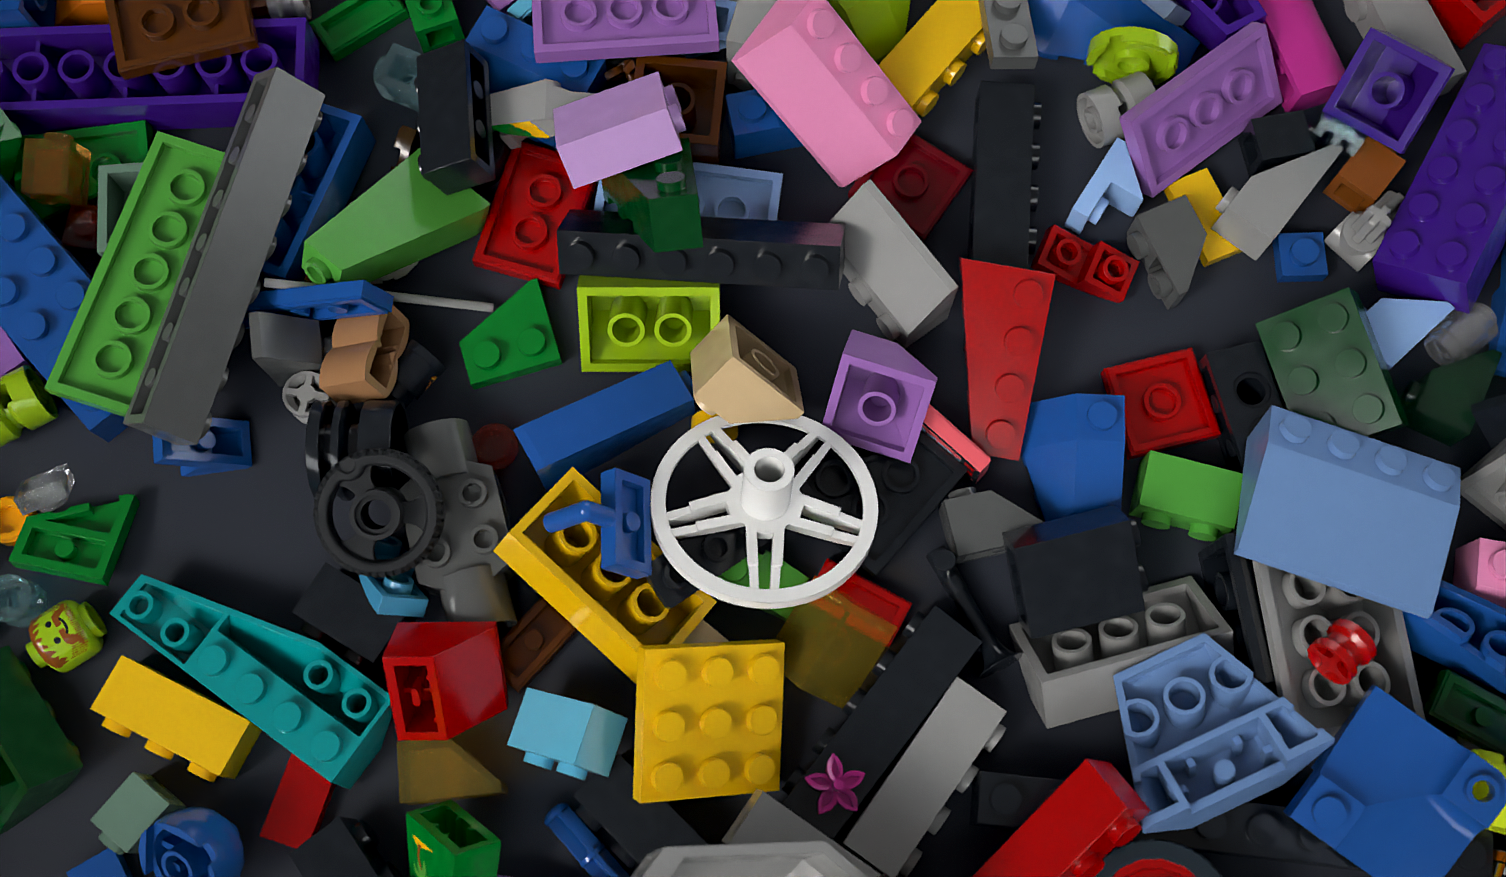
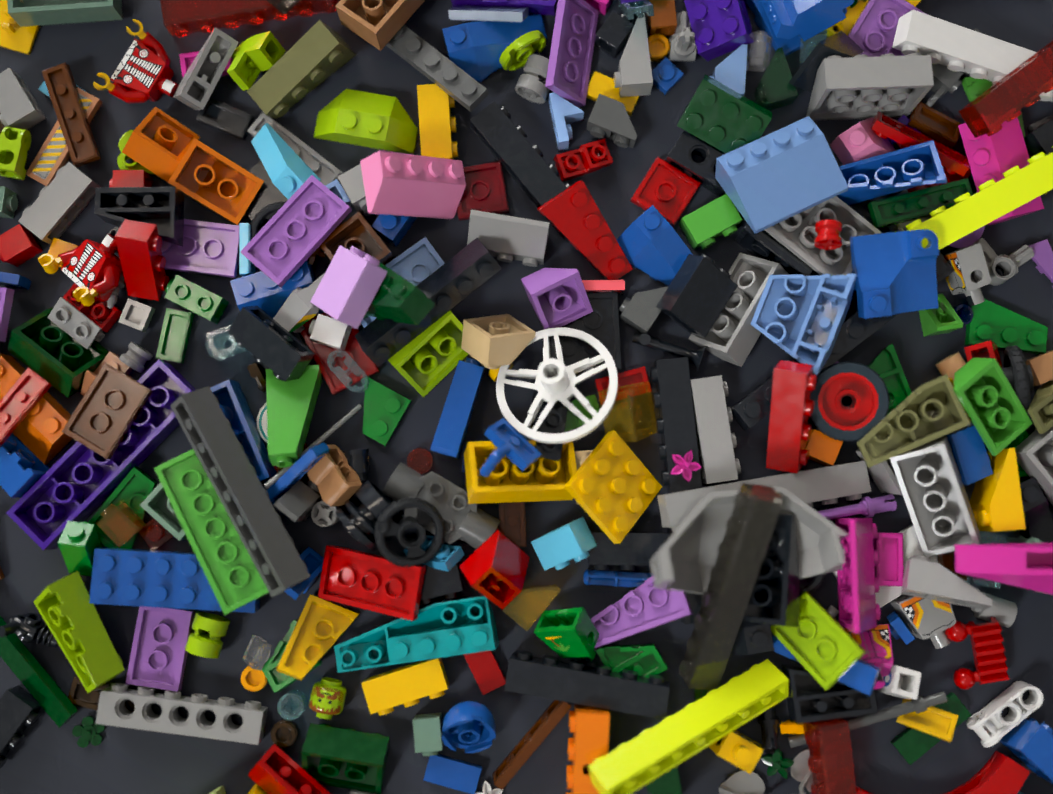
camera: 45 degrees left, 10 degrees up
(130, 535) = (314, 635): none -> yellow wing
(270, 538) = (371, 582): none -> red plate
(508, 247) = (343, 375): none -> clear light blue beam
(544, 178) = (329, 332): none -> white brick
(1321, 211) = (658, 47): none -> light orange tile

